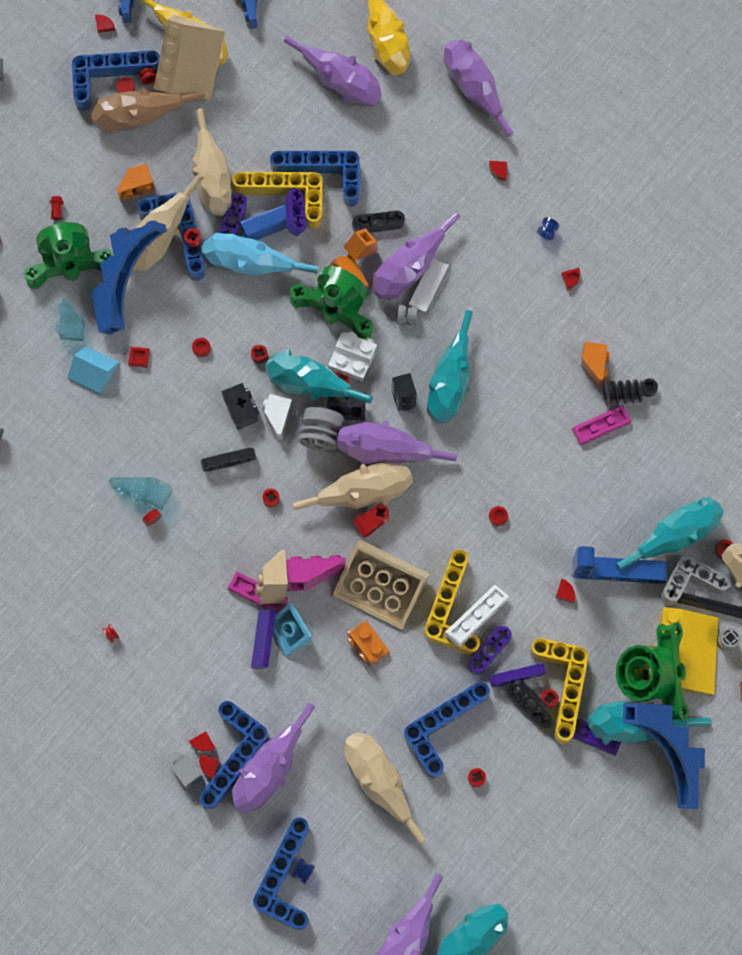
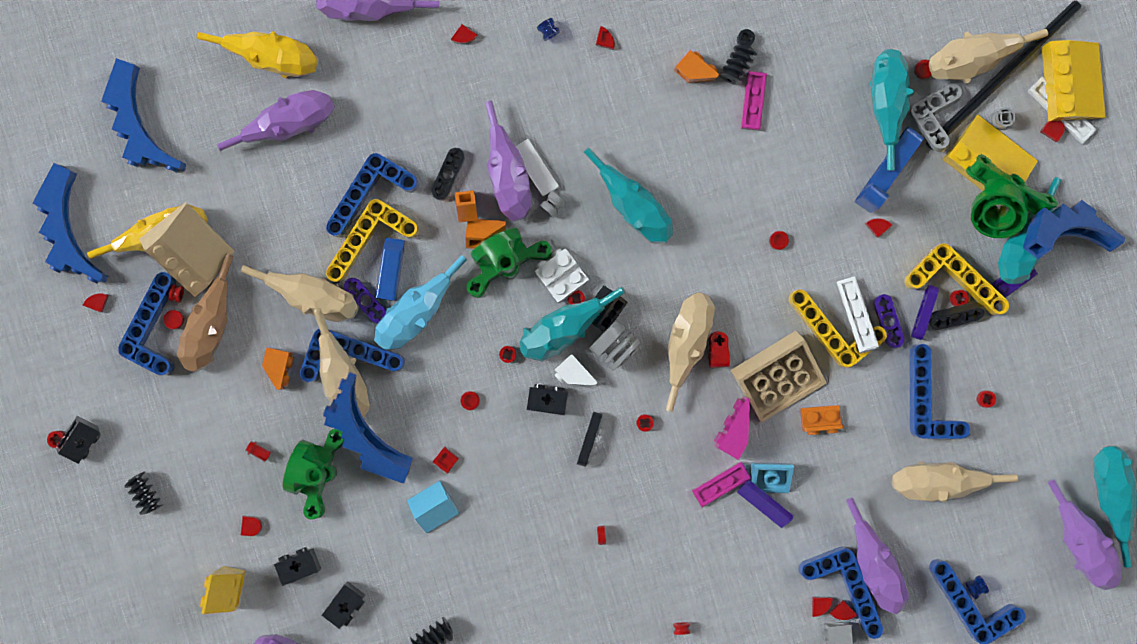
camera: 55 degrees left, 15 degrees up
(71, 322) = (378, 501): clear light blue slope -> none
(147, 489) = (575, 523): clear light blue slope -> none
(189, 242) = (364, 344): red bush -> none
(273, 580) = (726, 467): tan slope -> none
(294, 227) = (400, 250): dark purple beam -> none
(384, 444) = (663, 300): medium lavender piece -> none
(404, 392) = (625, 253): black brick -> none

